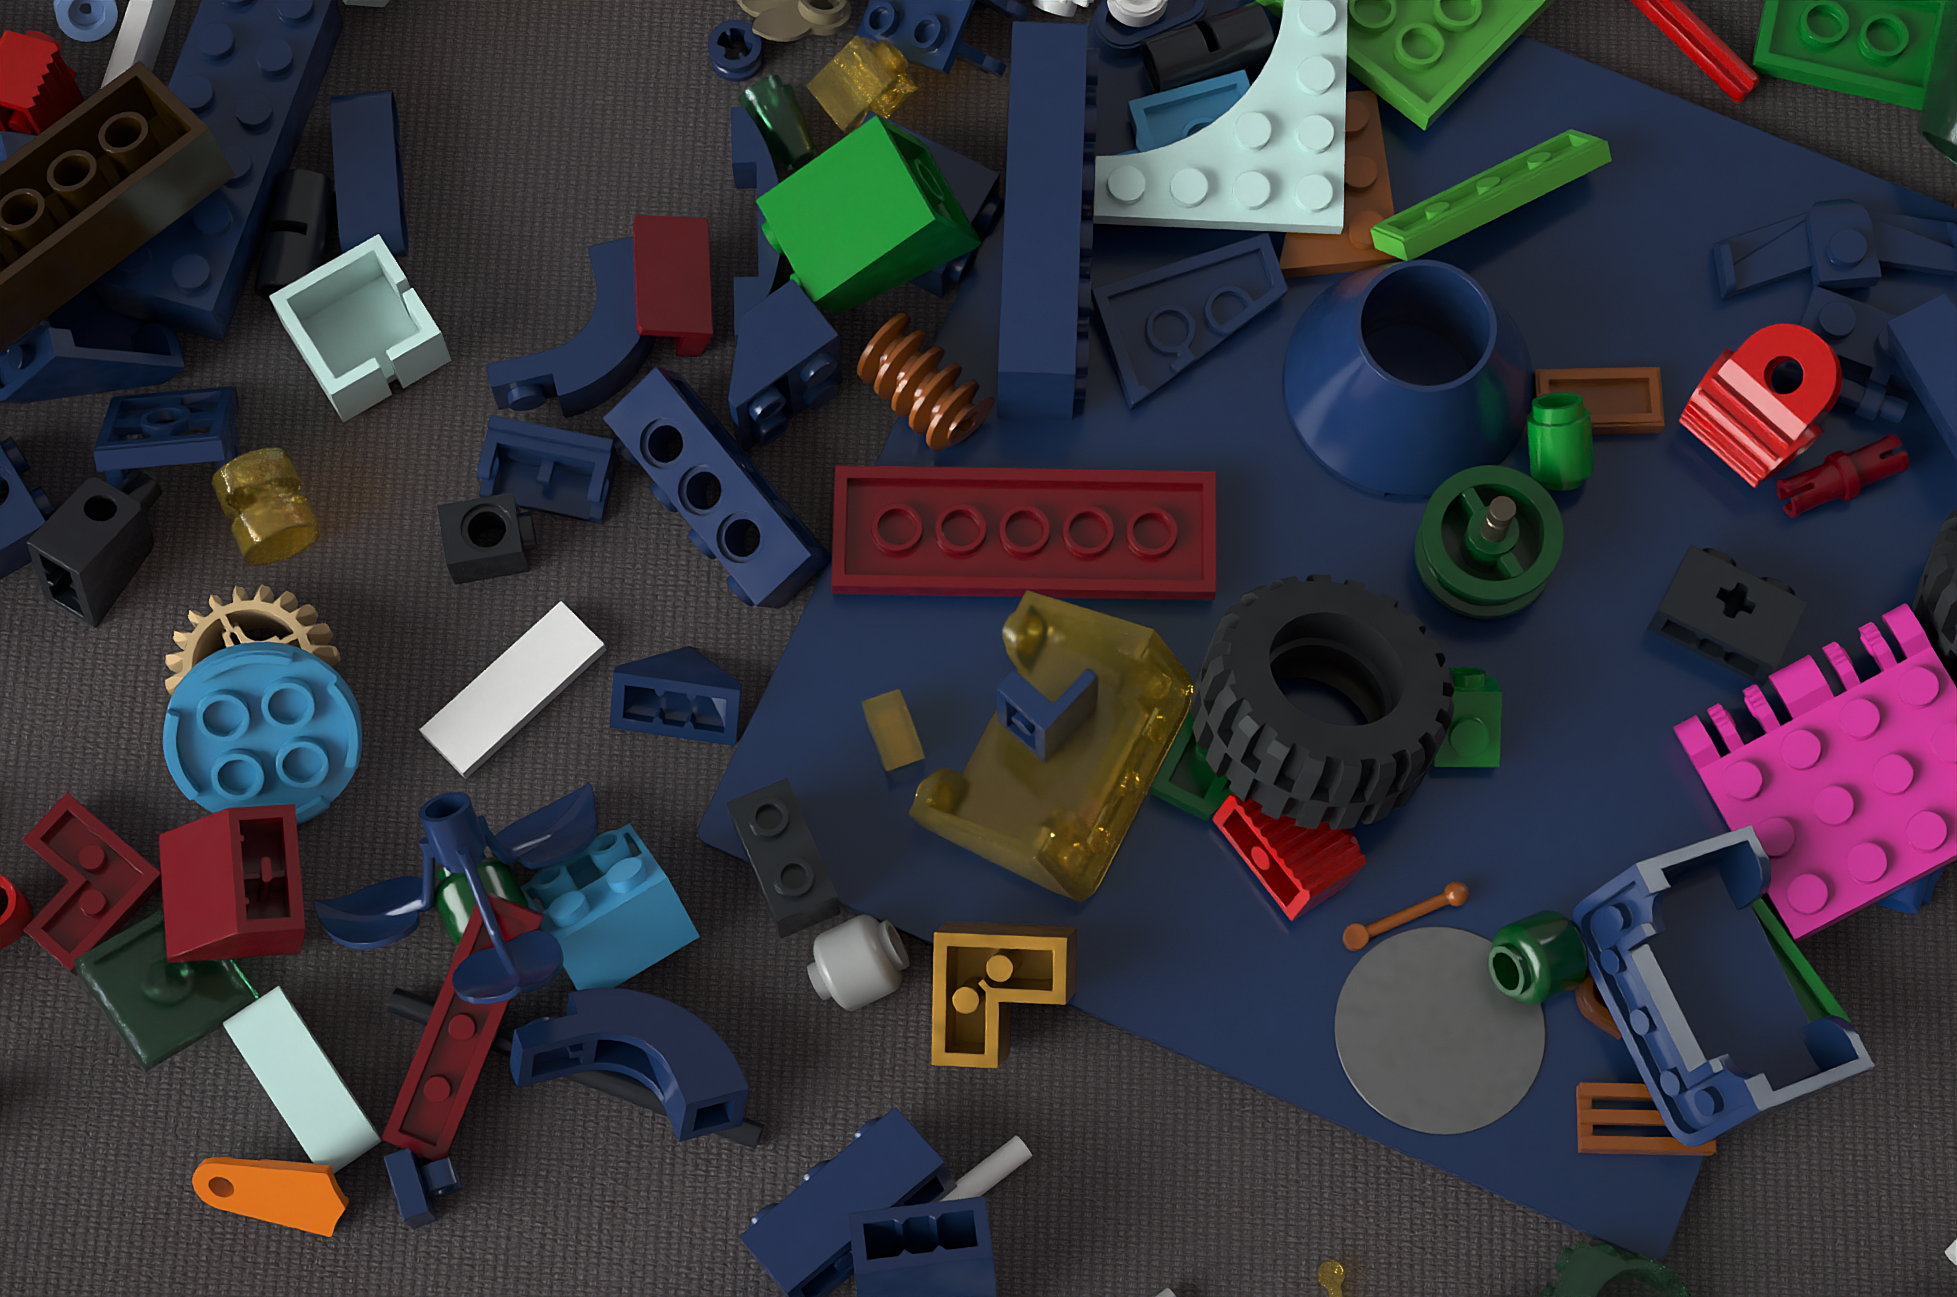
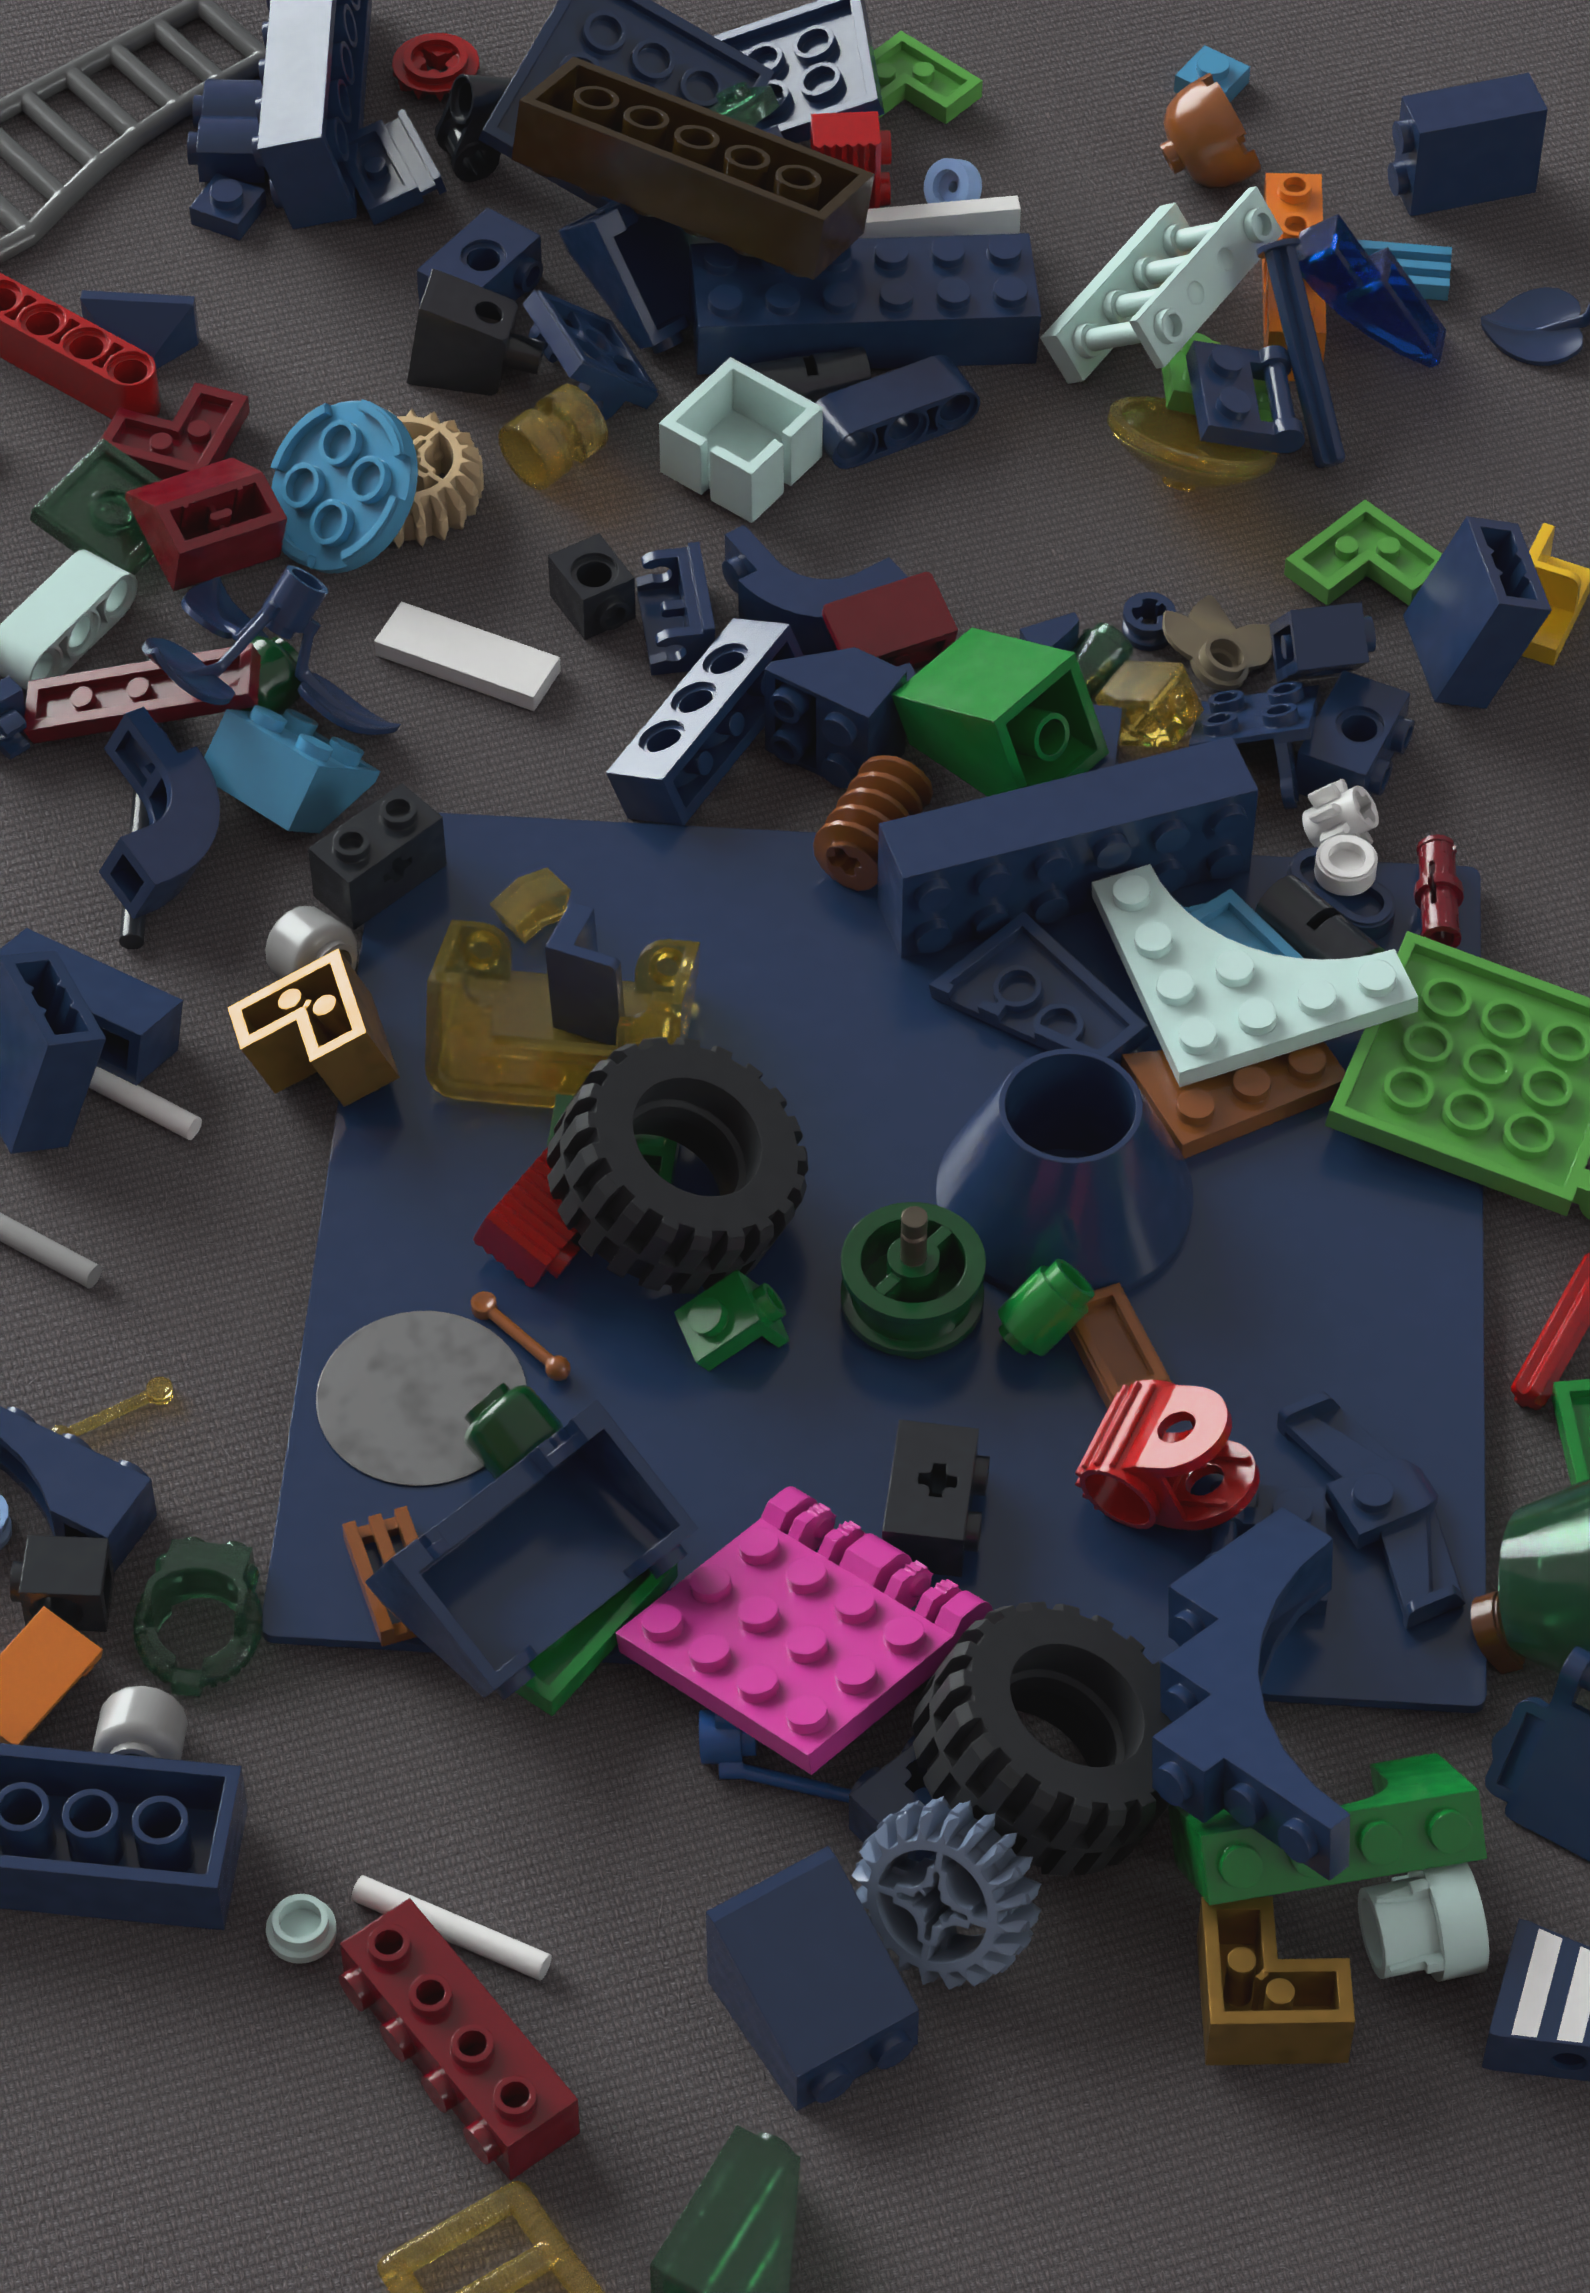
camera: 70 degrees right, 20 degrees down
(677, 697) = (507, 759): dark blue slope -> none
(1023, 532) = (766, 943): dark red plate -> none
(1490, 194) = (1278, 1184): bright green tile -> none
(1842, 475) = (1126, 1561): dark red pin -> none

